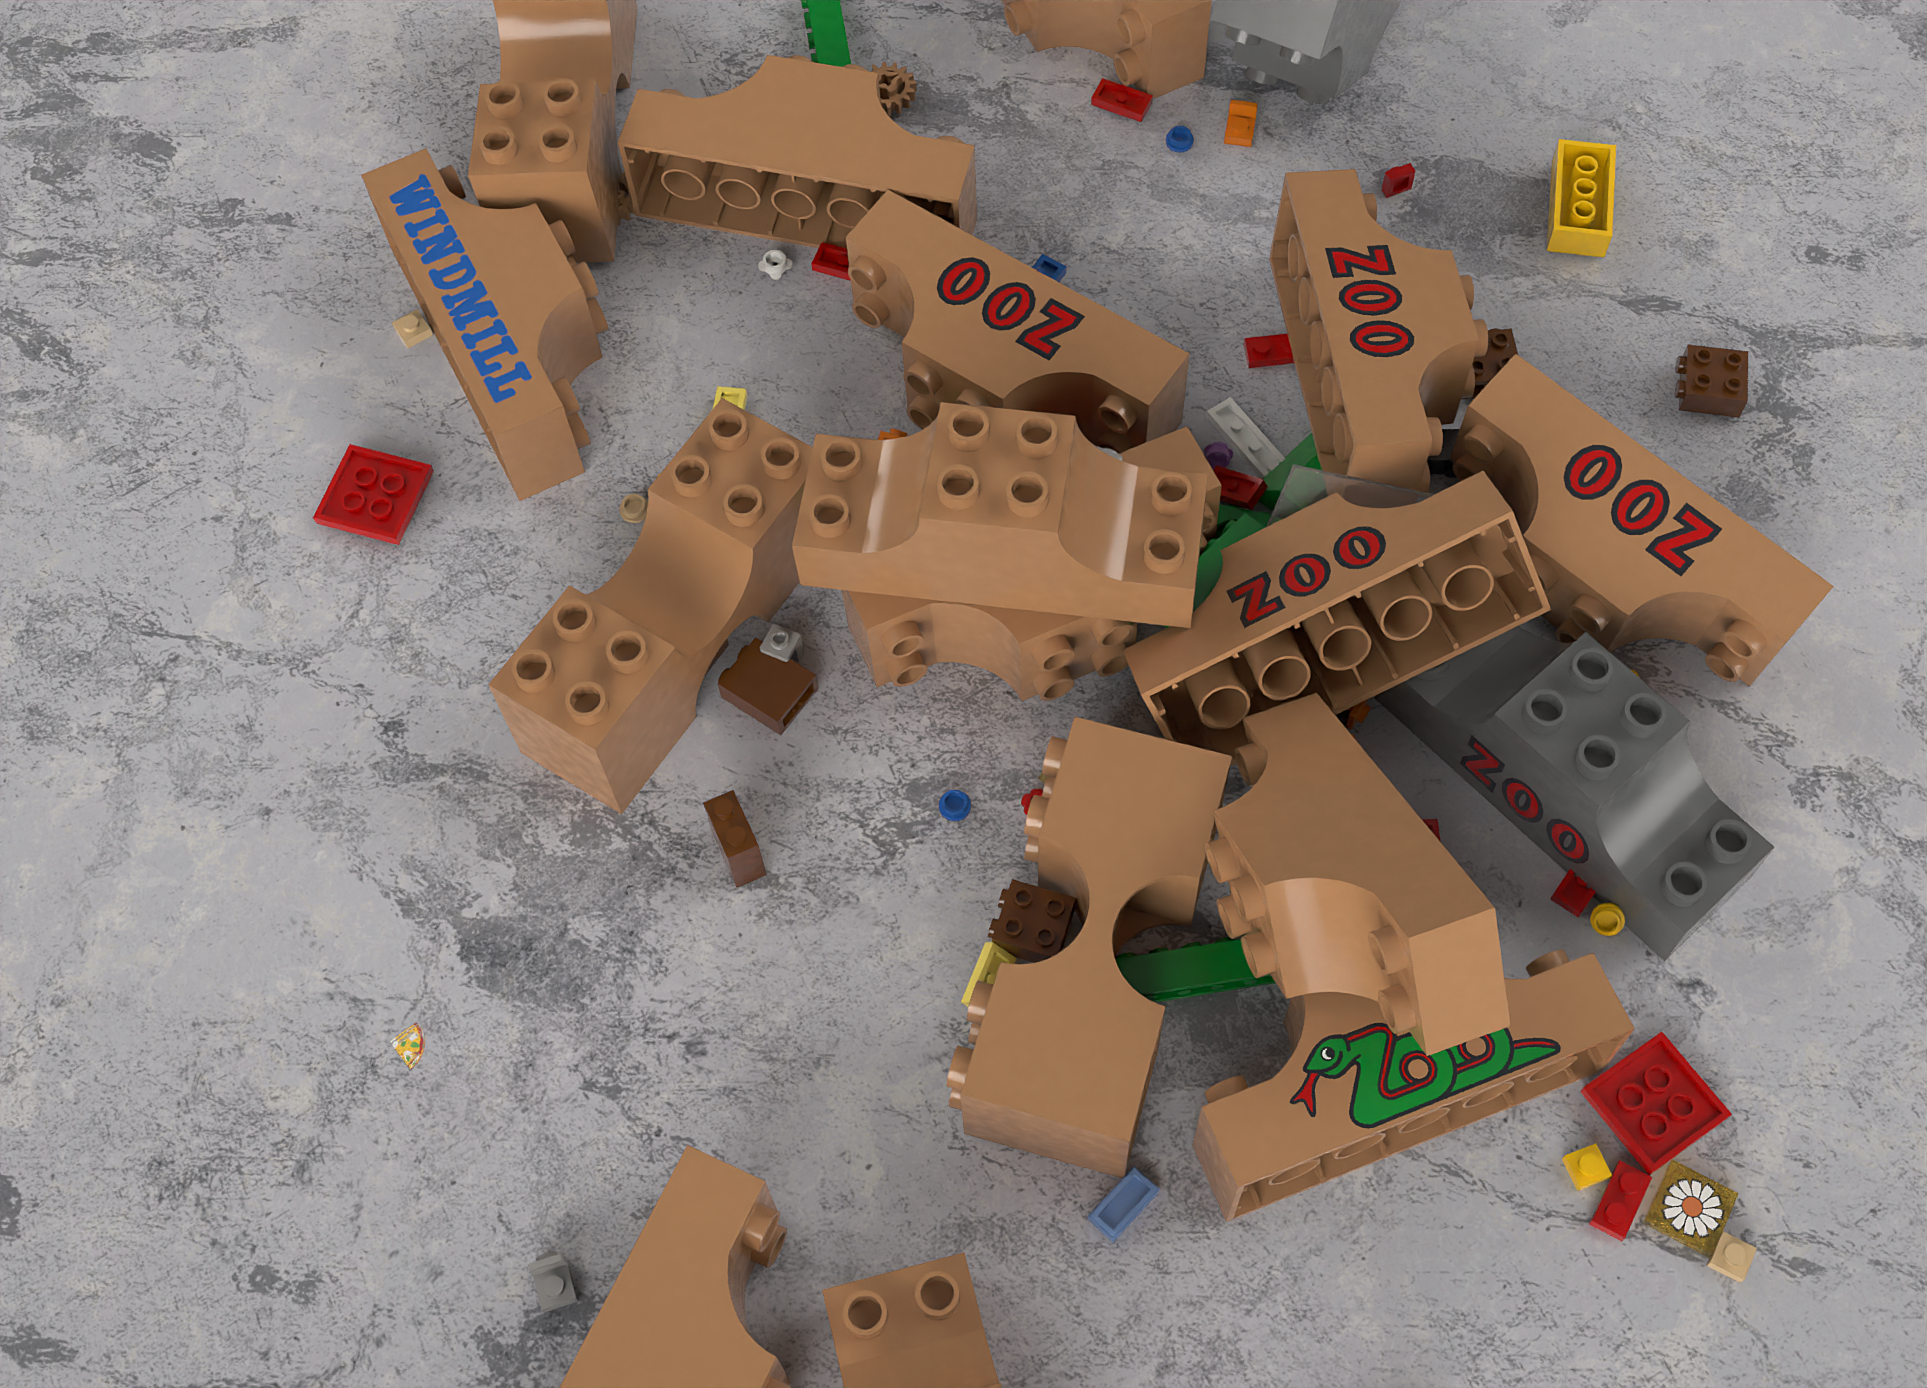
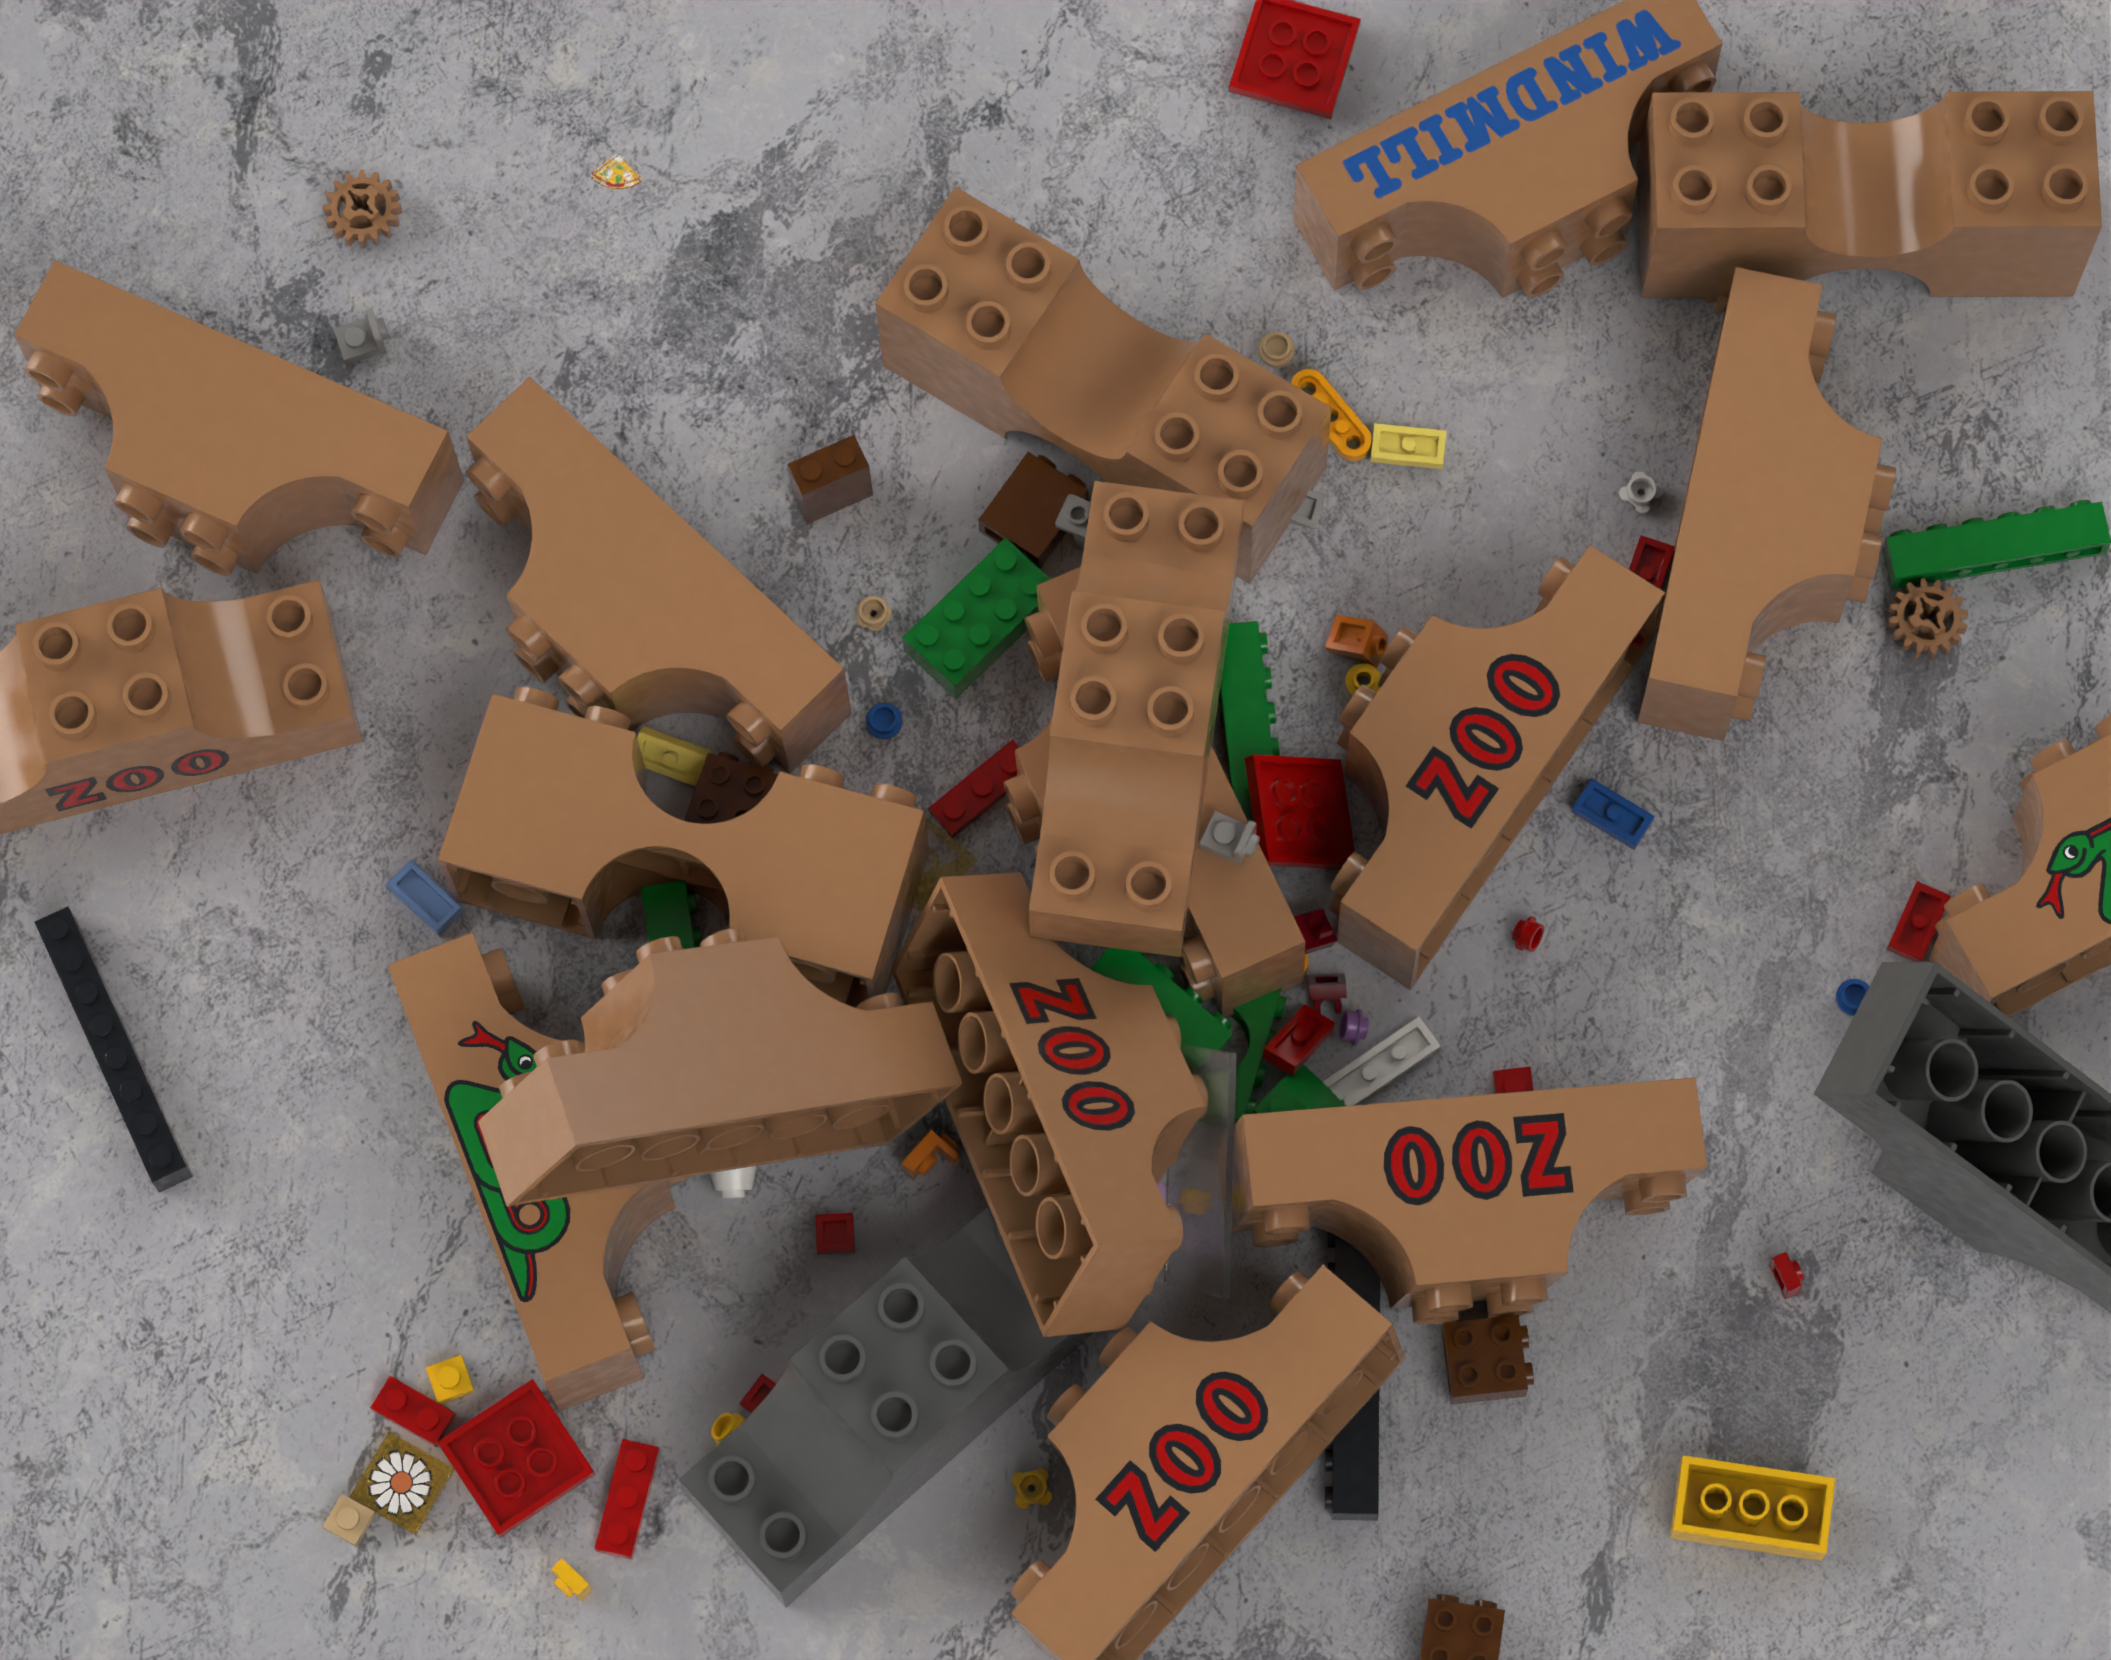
camera: 90 degrees right, 10 degrees up
(429, 1273) = (359, 223): none -> medium nougat gear
(843, 995) = (636, 599): none -> medium nougat brick
(852, 807) = (870, 604): none -> tan plate
(865, 725) = (976, 619): none -> green brick
(1014, 726) = (976, 792): none -> red plate
(1677, 1007) = (627, 1499): none -> red plate
(1763, 1051) = (569, 1581): none -> yellow plate

